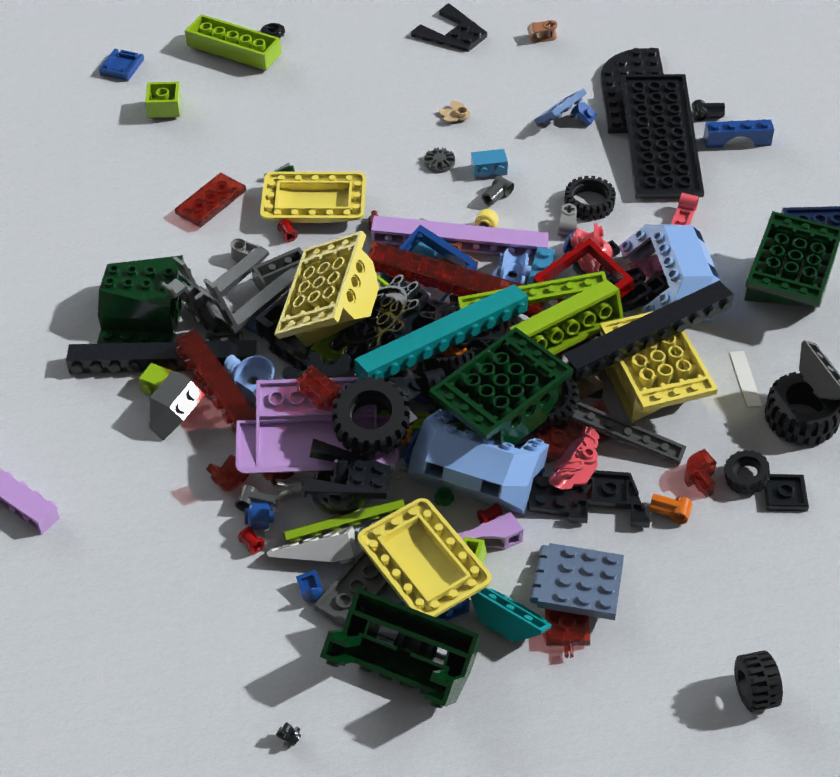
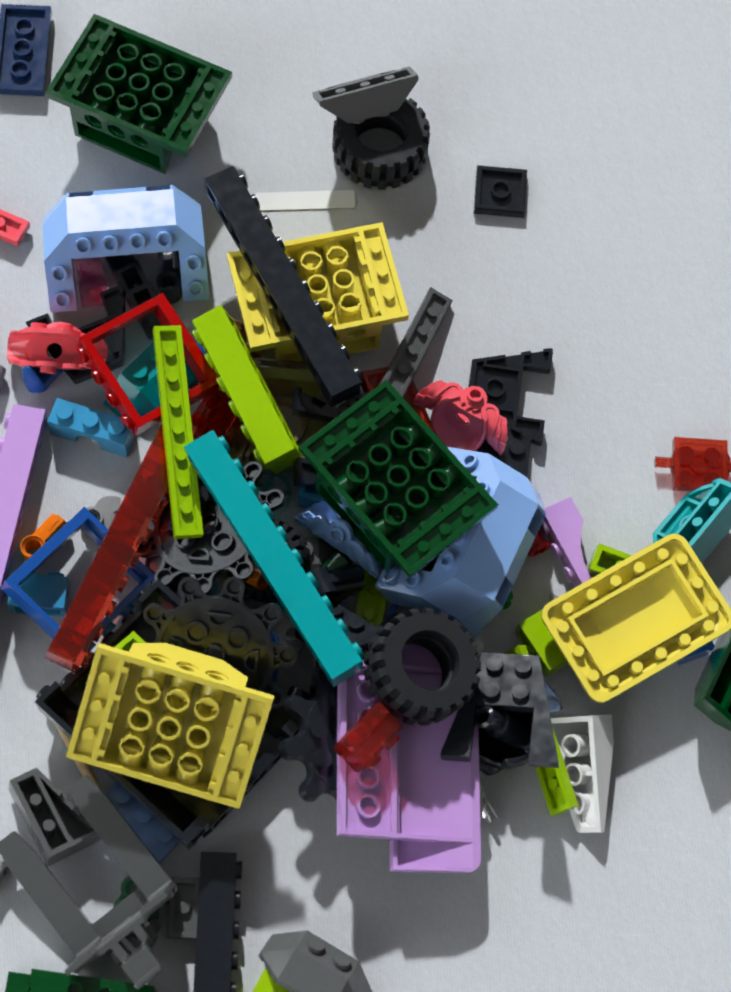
camera: 95 degrees left, 20 degrees up
(218, 385) = (296, 908): clear red brick -> none
(227, 475) = (458, 893): clear red brick -> none
(249, 494) = (499, 857): dark grey piece -> none
(251, 540) = (570, 857): red bush -> none
(252, 368) = (309, 835): light blue piece -> none
(259, 516) = (533, 846): blue head -> none
(310, 586) = (648, 775): blue plate -> none
(339, 596) = (655, 722): dark grey plate -> none
(514, 264) = (85, 482): light blue piece -> none
(577, 581) = (640, 443): sand blue hinge -> none
(677, 509) = (528, 316): orange piece -> none
(699, 471) = (468, 282): clear red brick -> none
(747, 485) = (480, 205): black tyre -> none

